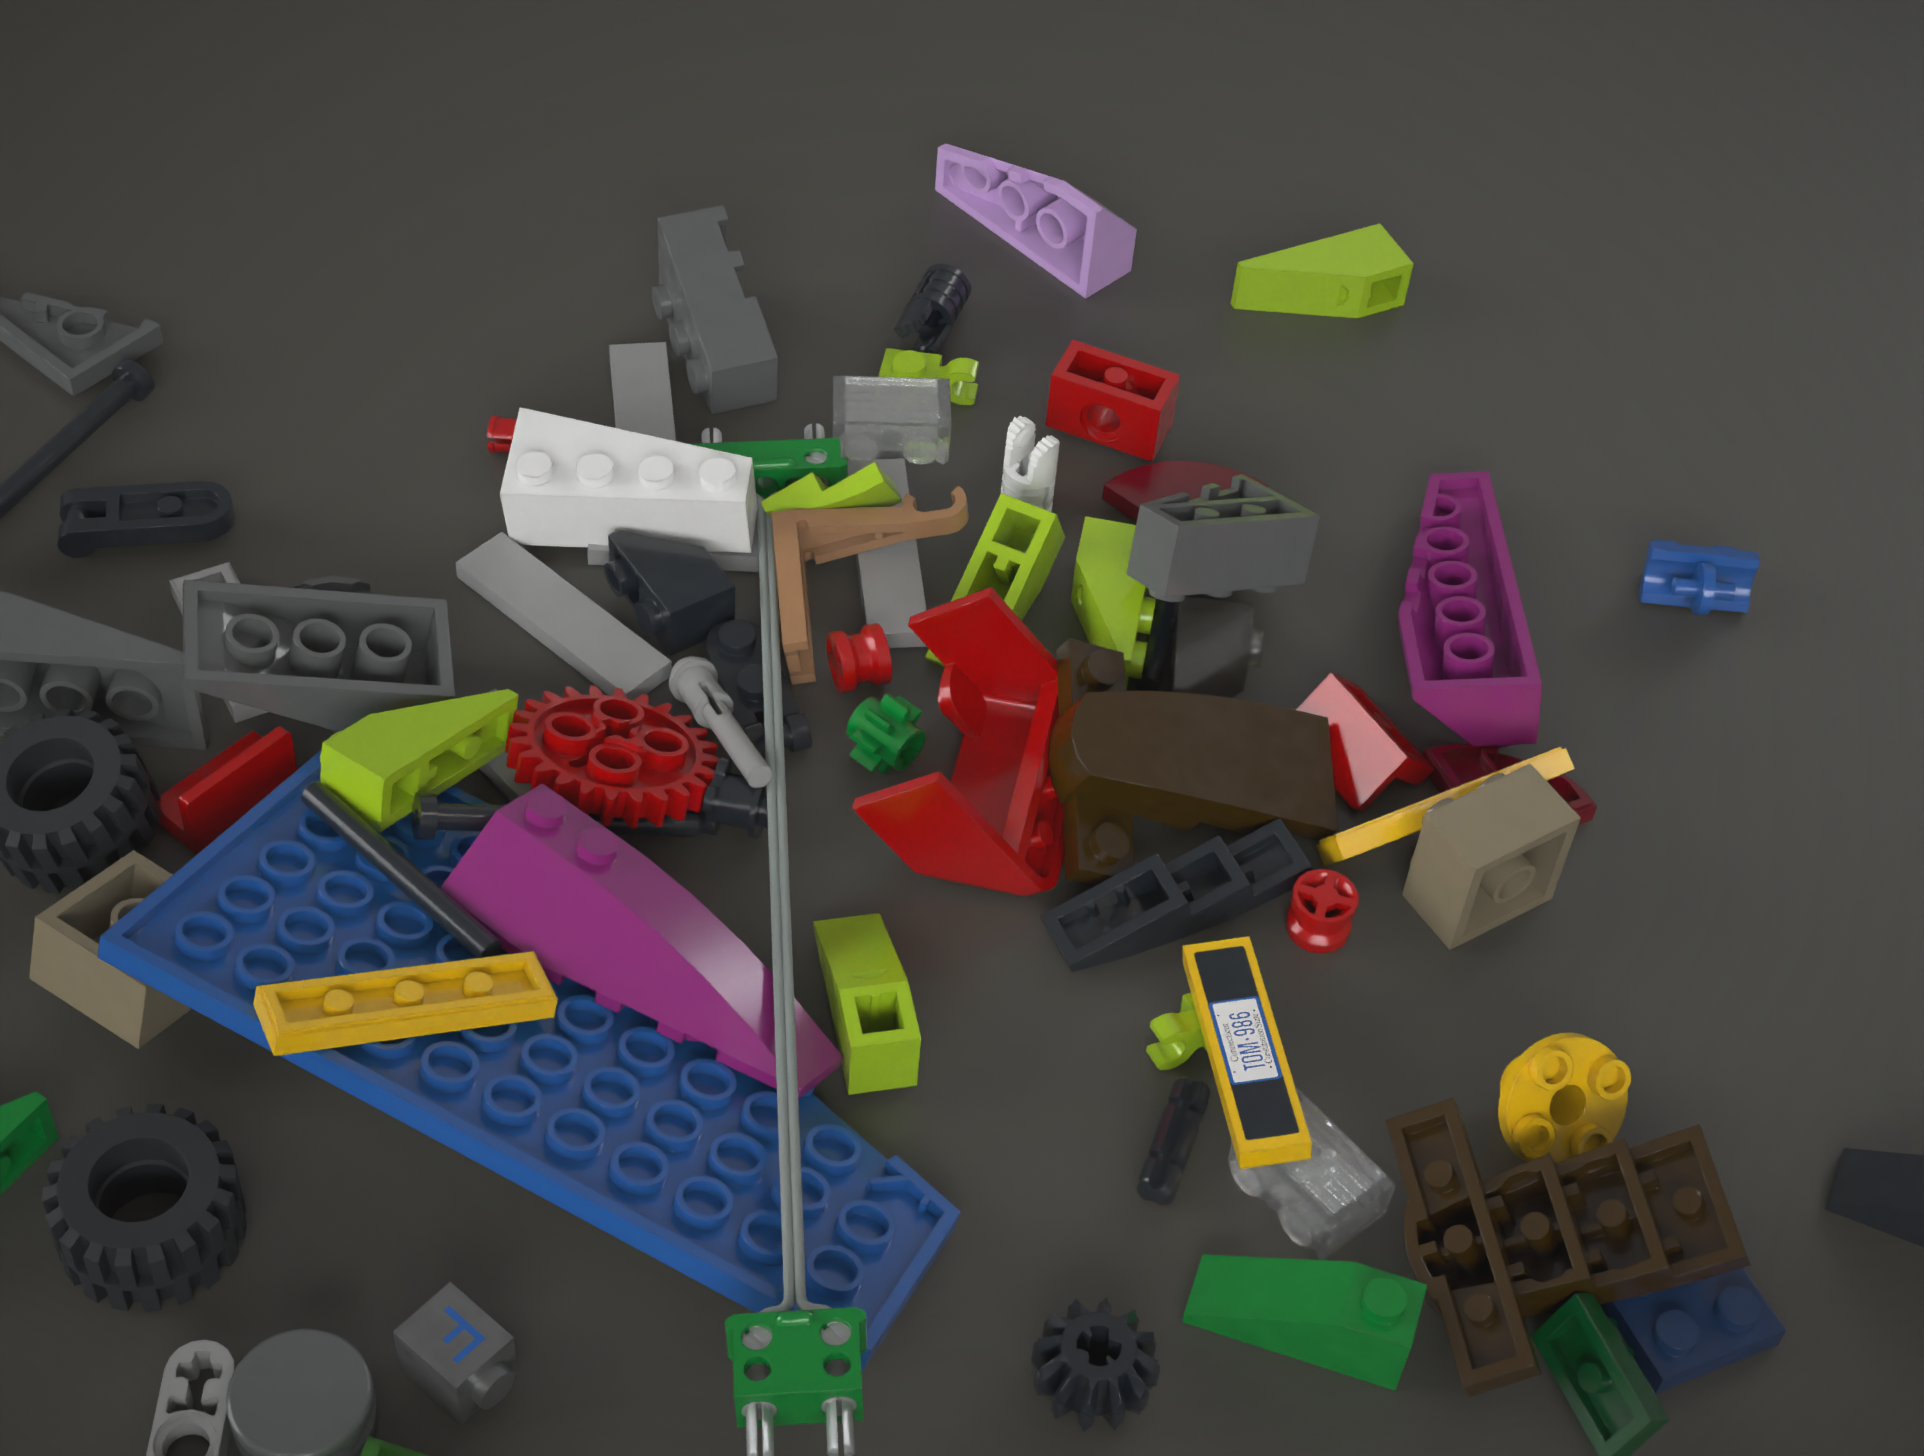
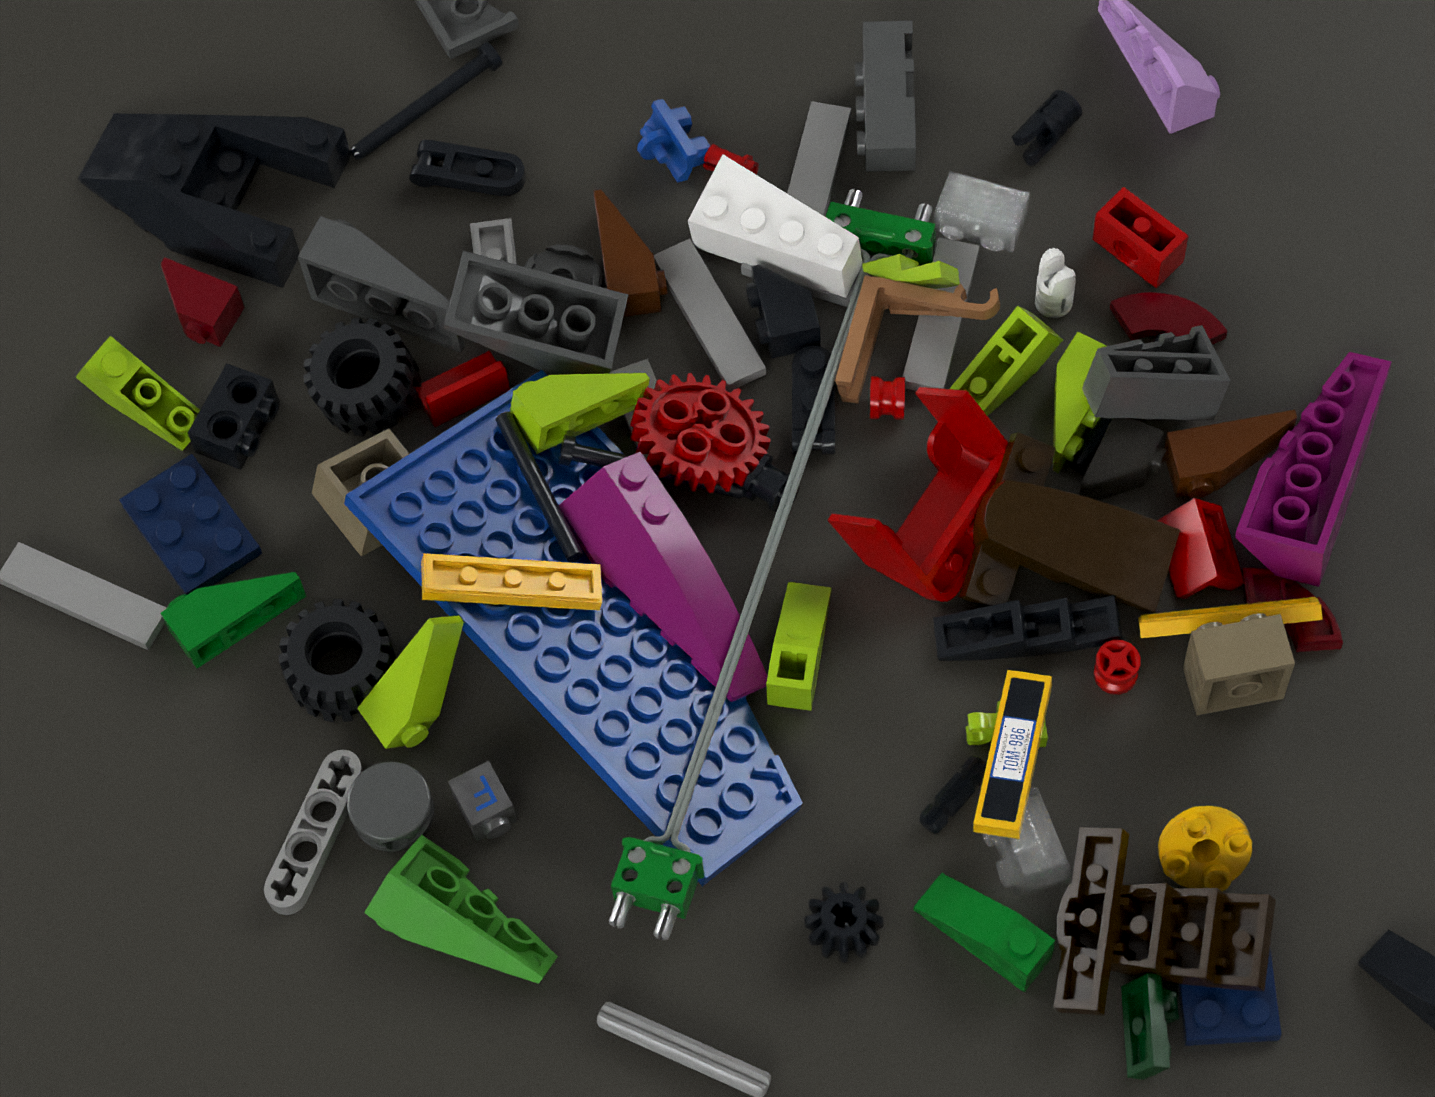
camera: 30 degrees right, 15 degrees up
(292, 1202) = (414, 686): none -> lime slope
(420, 565) = (628, 261): none -> reddish brown slope
(429, 421) = (667, 140): none -> blue hips
(696, 684) = (775, 388): light grey pin -> none
(886, 733) = (882, 461): green gear -> none
(927, 365) = (1023, 175): lime plate -> none
(1328, 277) = (1358, 164): lime slope -> none
(1328, 619) = (1215, 454): none -> reddish brown slope

